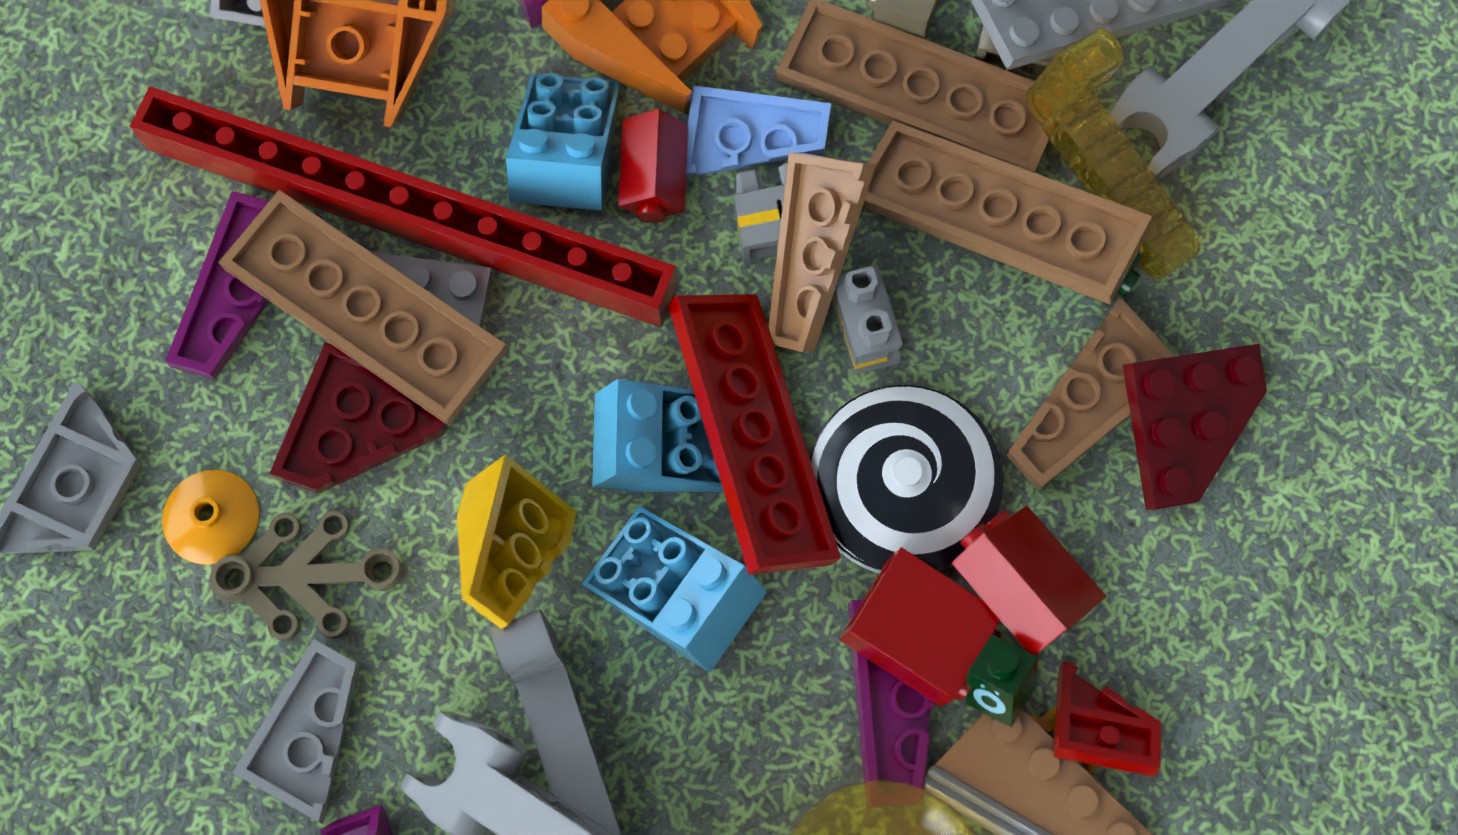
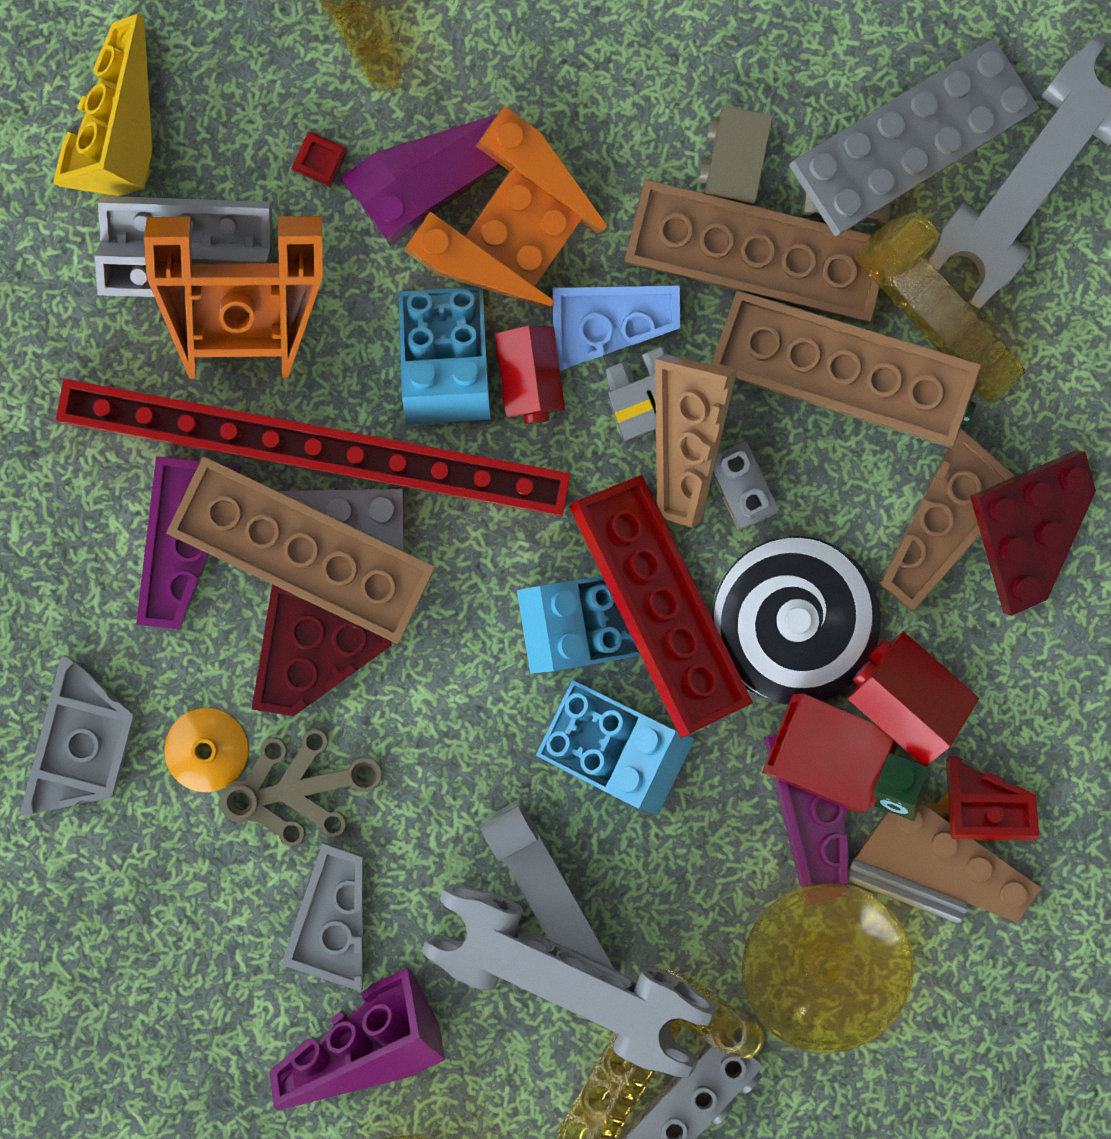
camera: 15 degrees left, 15 degrees up
(508, 538) = (472, 737): yellow wedge -> none

